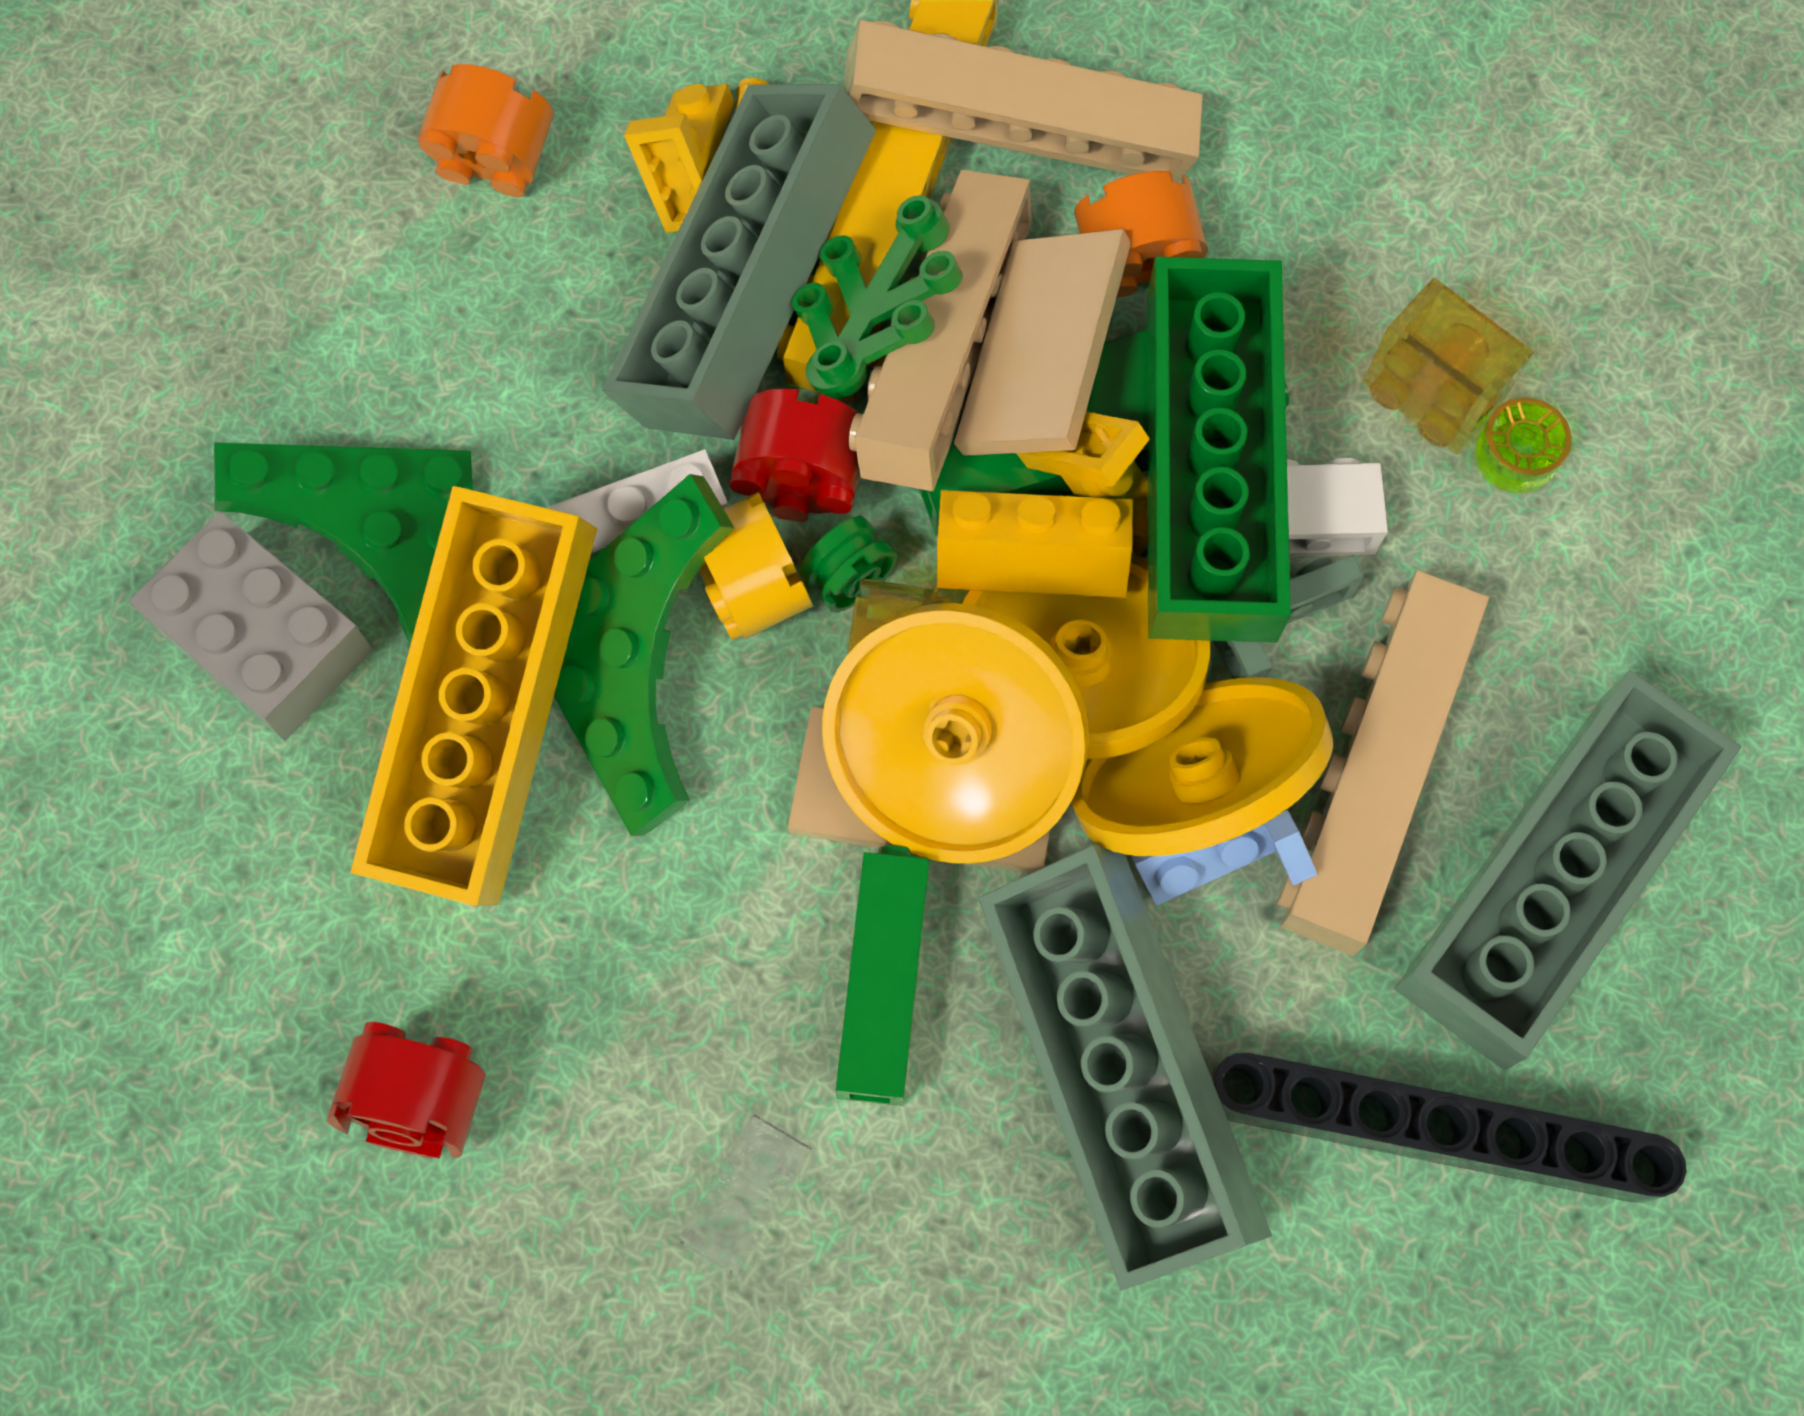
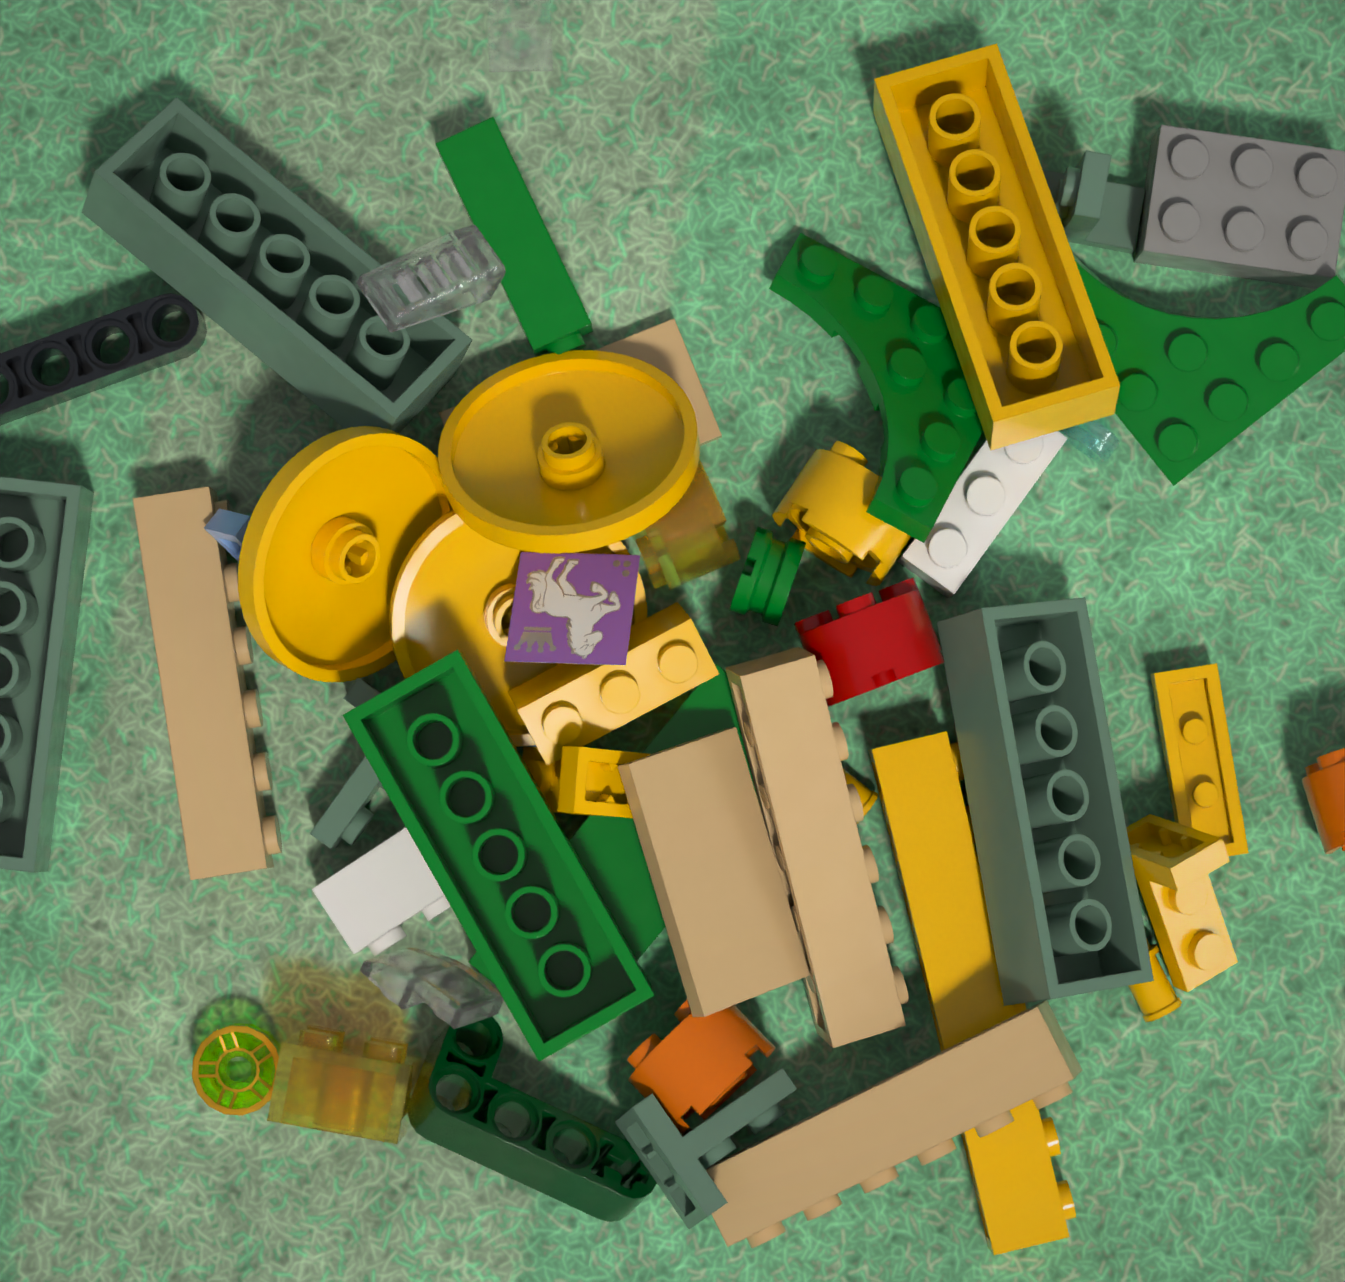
camera: 150 degrees right, 15 degrees up
(365, 693) = (1094, 209): none -> sand green bracket
(597, 244) = (1199, 753): none -> yellow plate
(841, 360) = (890, 816): green plant -> none
(940, 968) = (463, 256): none -> clear slope
(1043, 595) = (572, 608): none -> medium lavender sticker
(1203, 162) = (681, 1162): none -> sand green bracket
(1307, 257) = (606, 1192): none -> dark green beam
(1322, 406) = (446, 985): none -> clear slope

